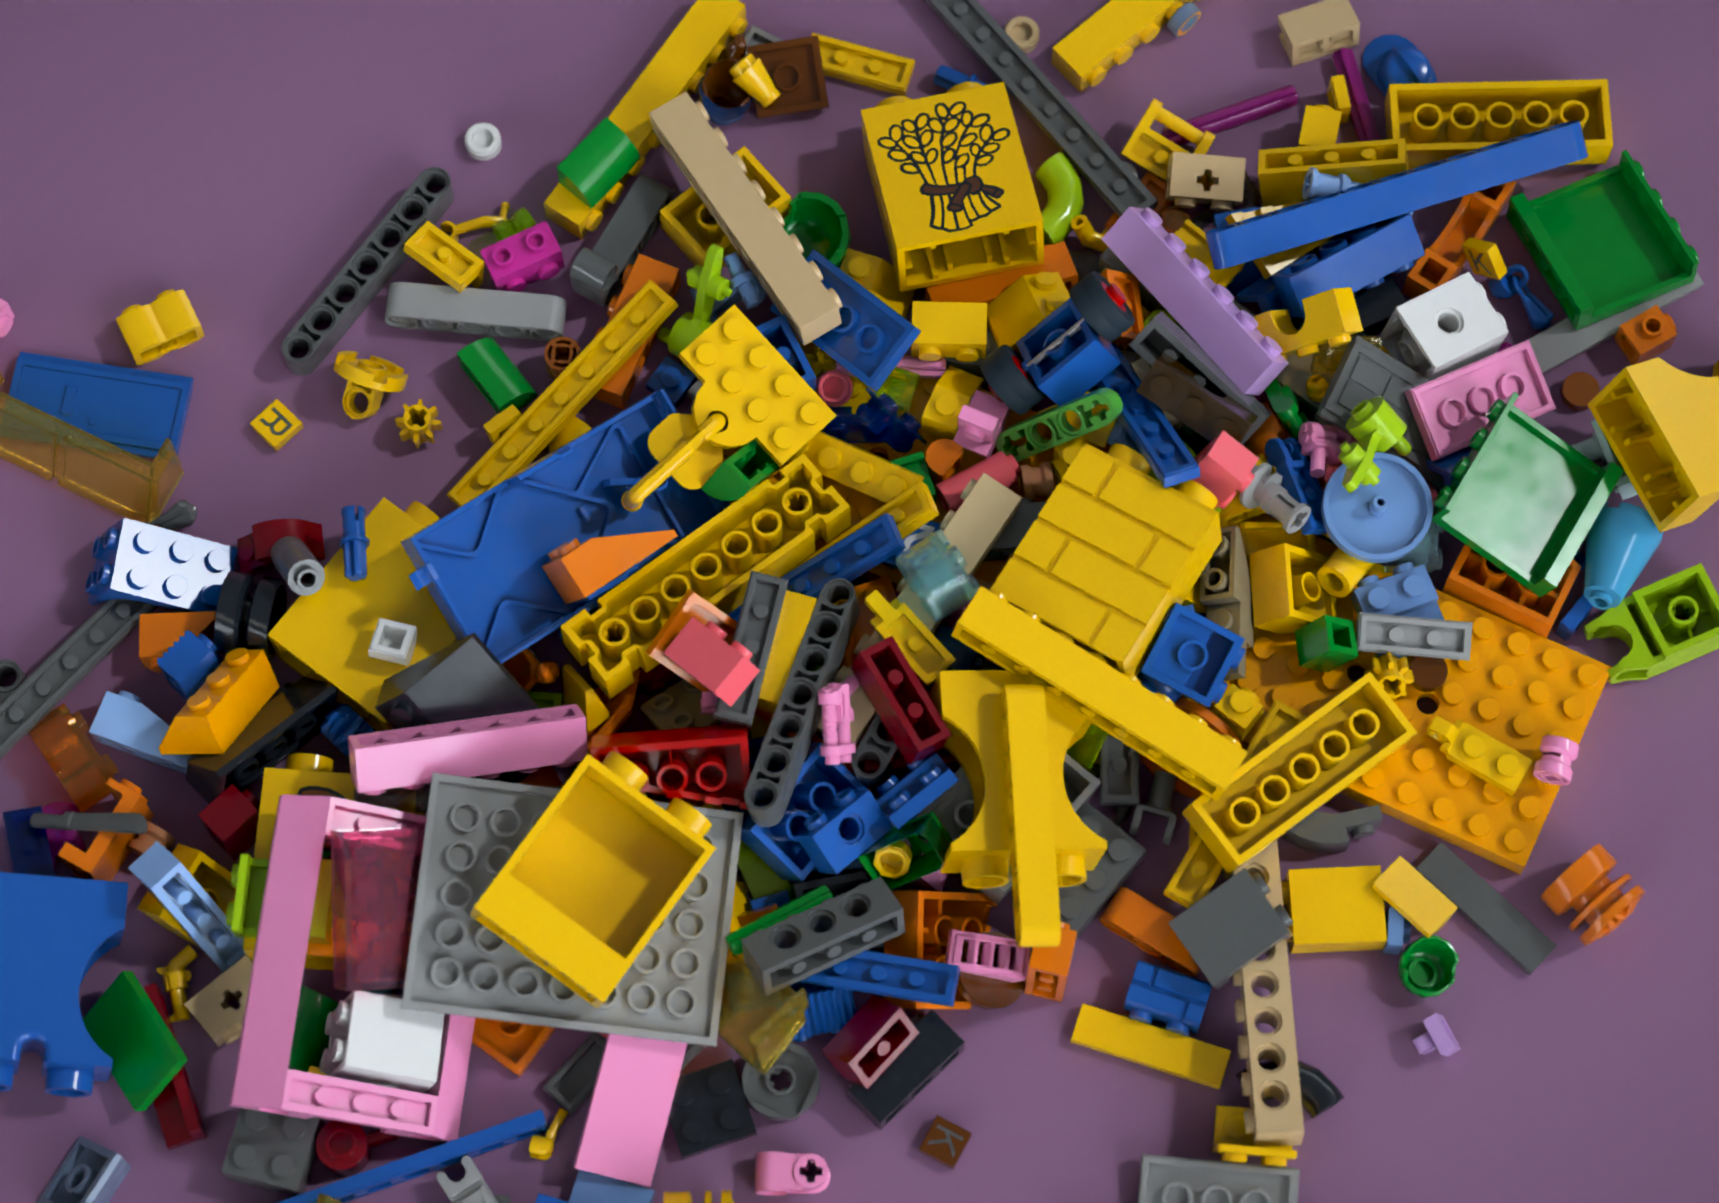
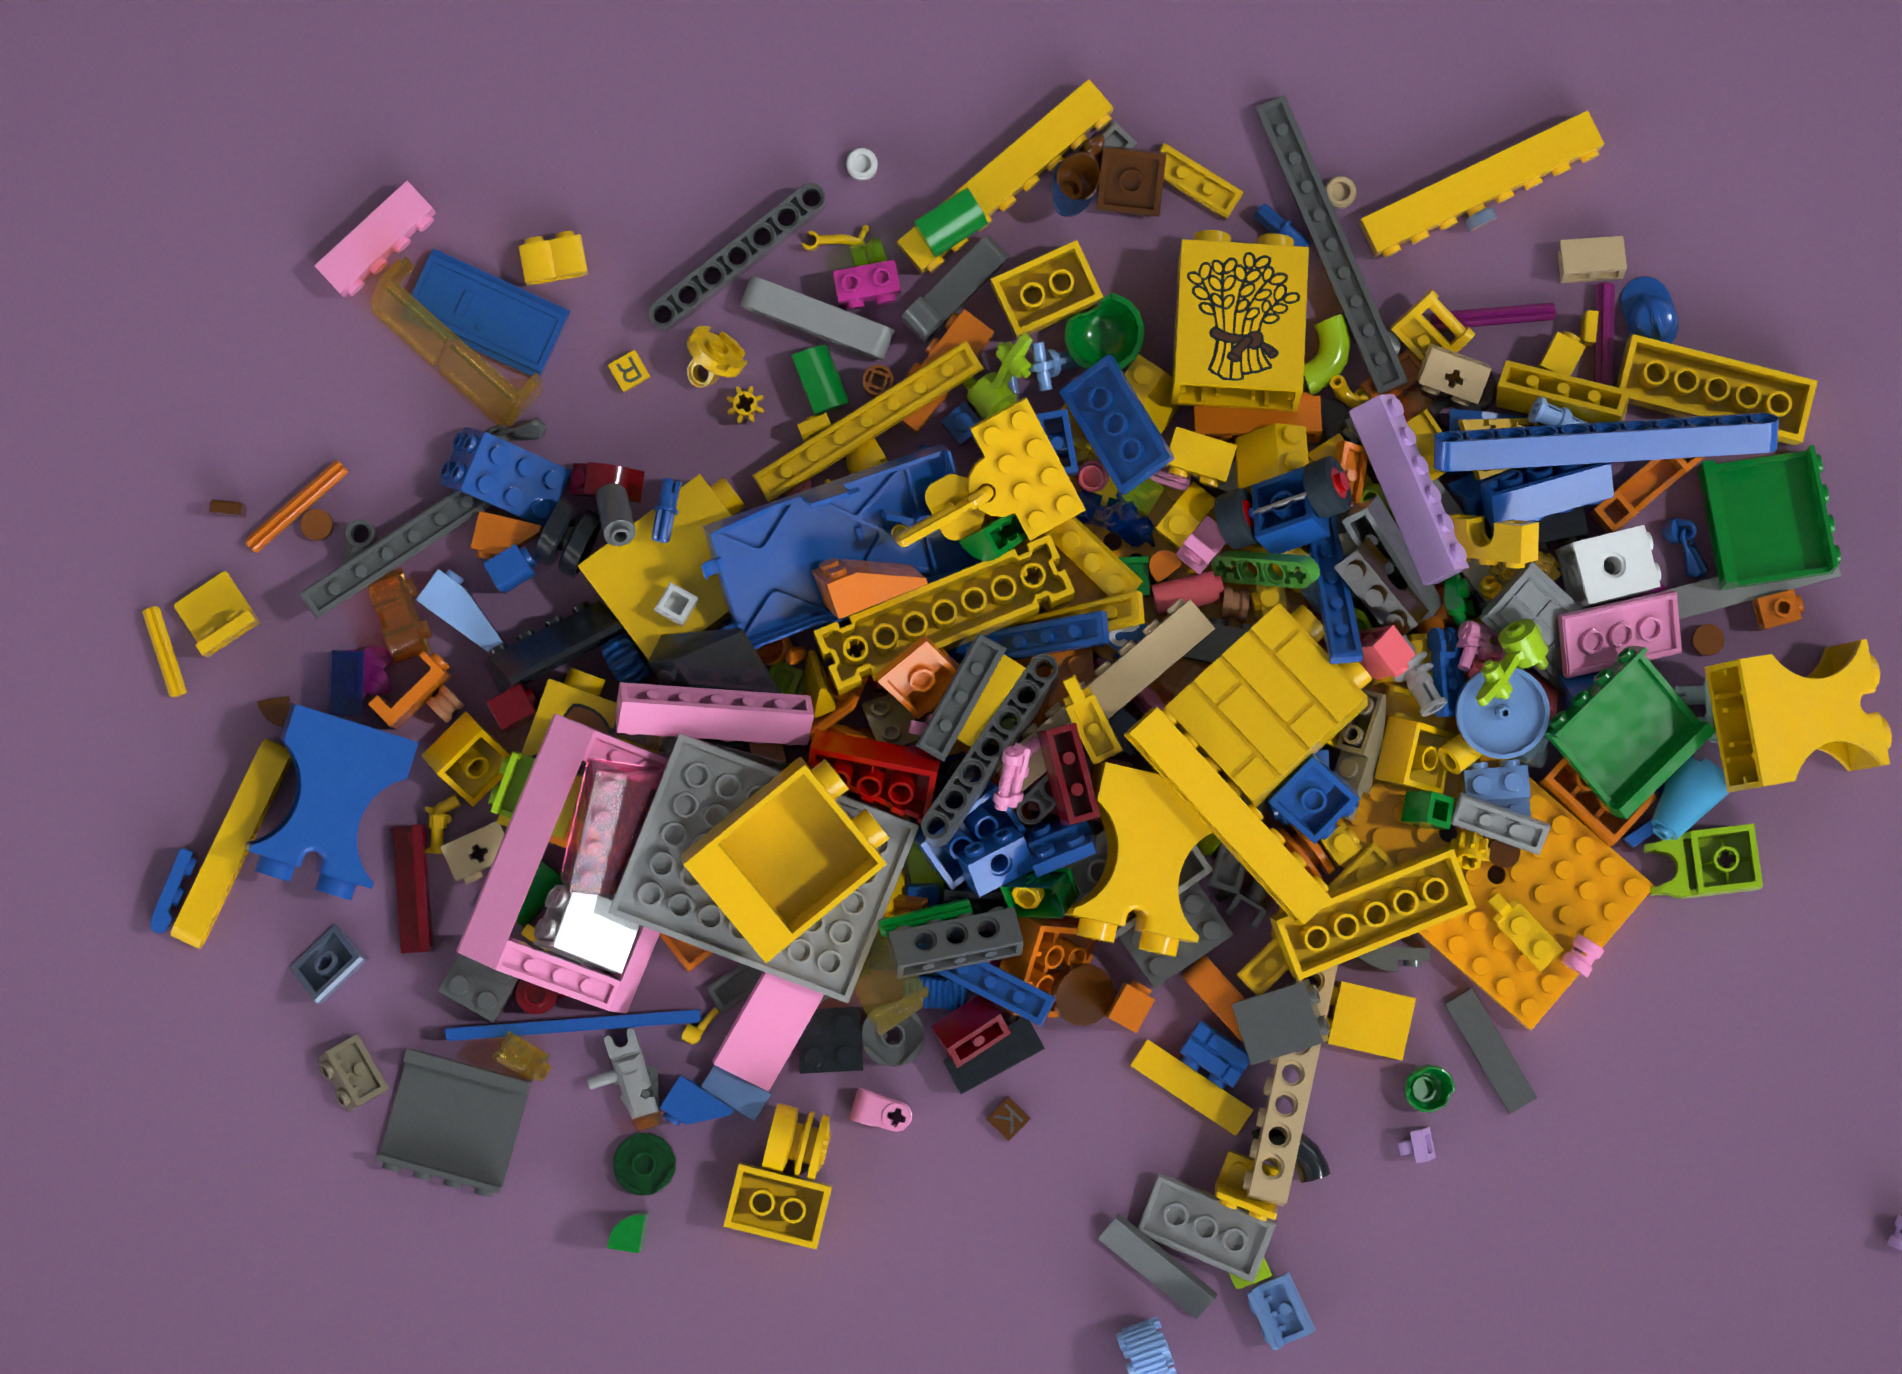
camera: 15 degrees right, 15 degrees up
(104, 822) = (412, 688): dark grey piece -> none
(136, 1039) = (394, 865): green tile -> none
(188, 905) = (460, 771): light blue slope -> none
(222, 705) = (527, 614): light orange slope -> none
(445, 257) = (802, 267): yellow panel -> none
(712, 661) = (926, 703): coral brick -> none
(746, 218) = (1058, 311): tan brick -> none
(754, 79) = (1101, 178): yellow cone -> none
(937, 575) = (1126, 682): clear light blue brick -> none
(1011, 960) = (1100, 994): bright pink slope -> none
(1030, 816) = (1143, 903): yellow beam -> none
(1397, 931) = (1414, 1051): medium blue plate -> none
(1414, 897) = (1434, 1031): yellow panel -> none
(1484, 258) = (1664, 508): yellow tile -> none
(1593, 894) = (1577, 1070): orange wheel -> none

